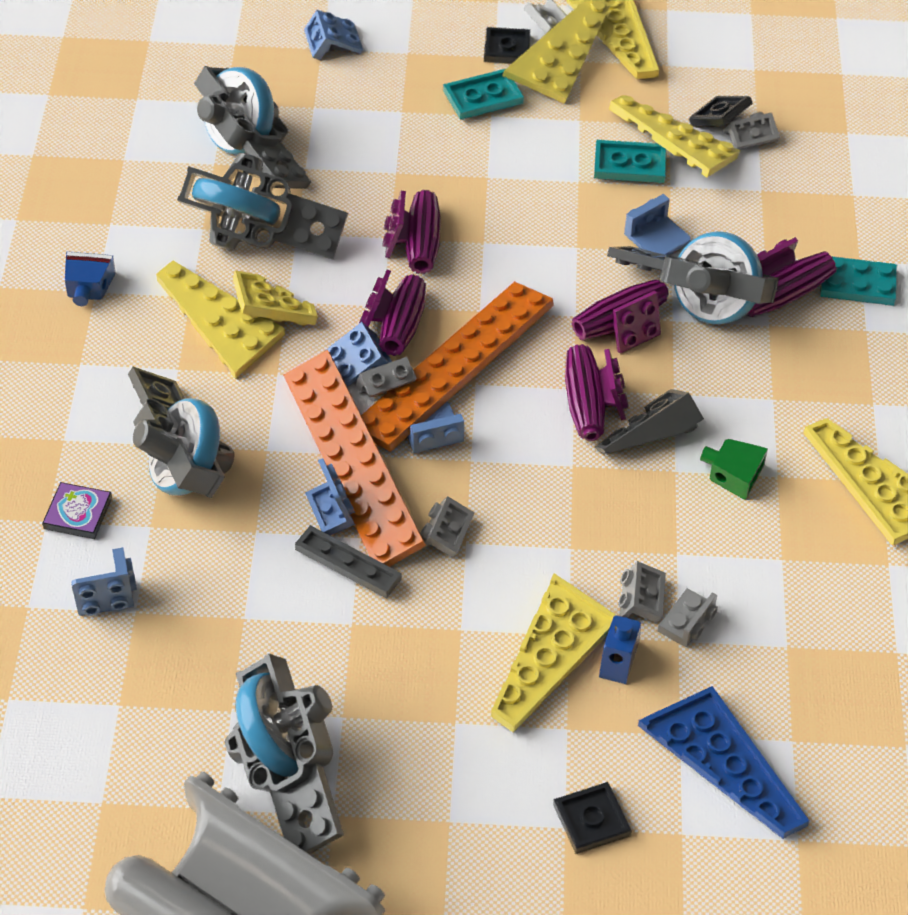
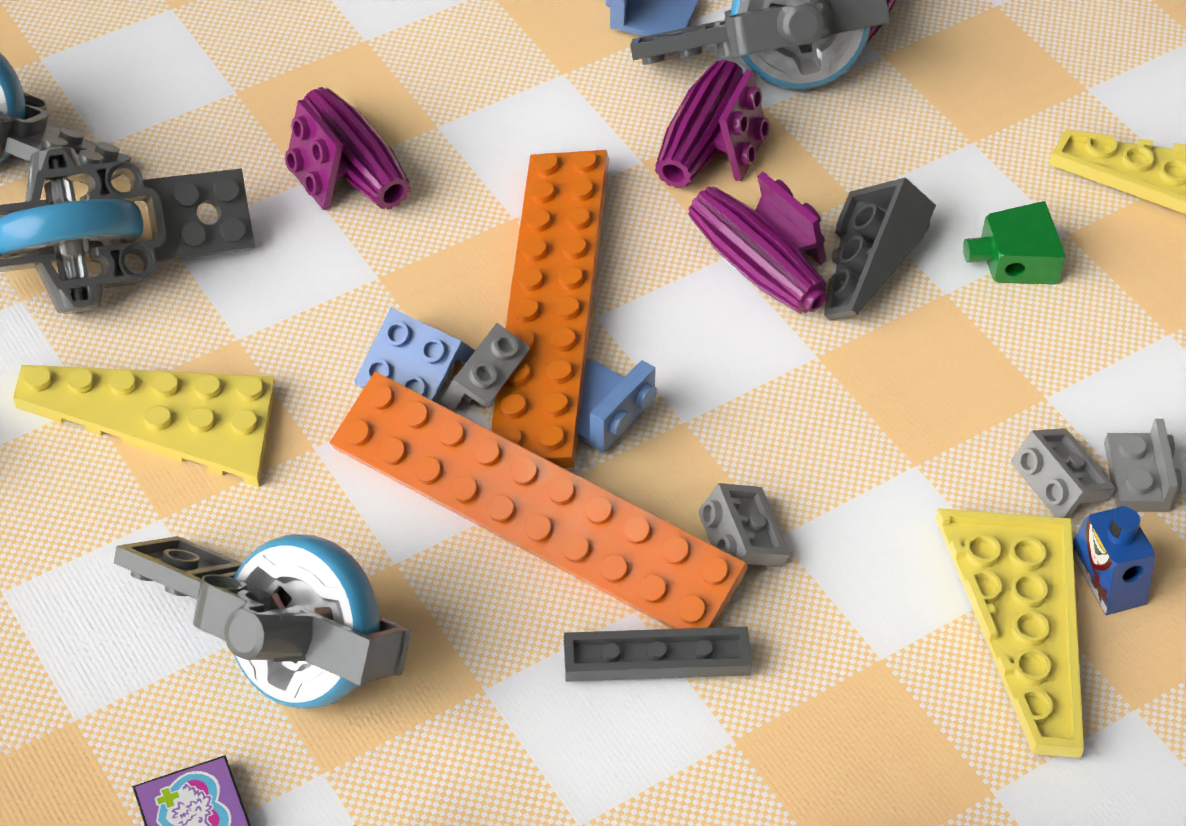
camera: 35 degrees left, 0 degrees up
(276, 303) = (222, 349): light yellow plate -> none
(330, 502) = (567, 580): medium blue bracket -> none
(397, 311) = (414, 260): magenta plate -> none

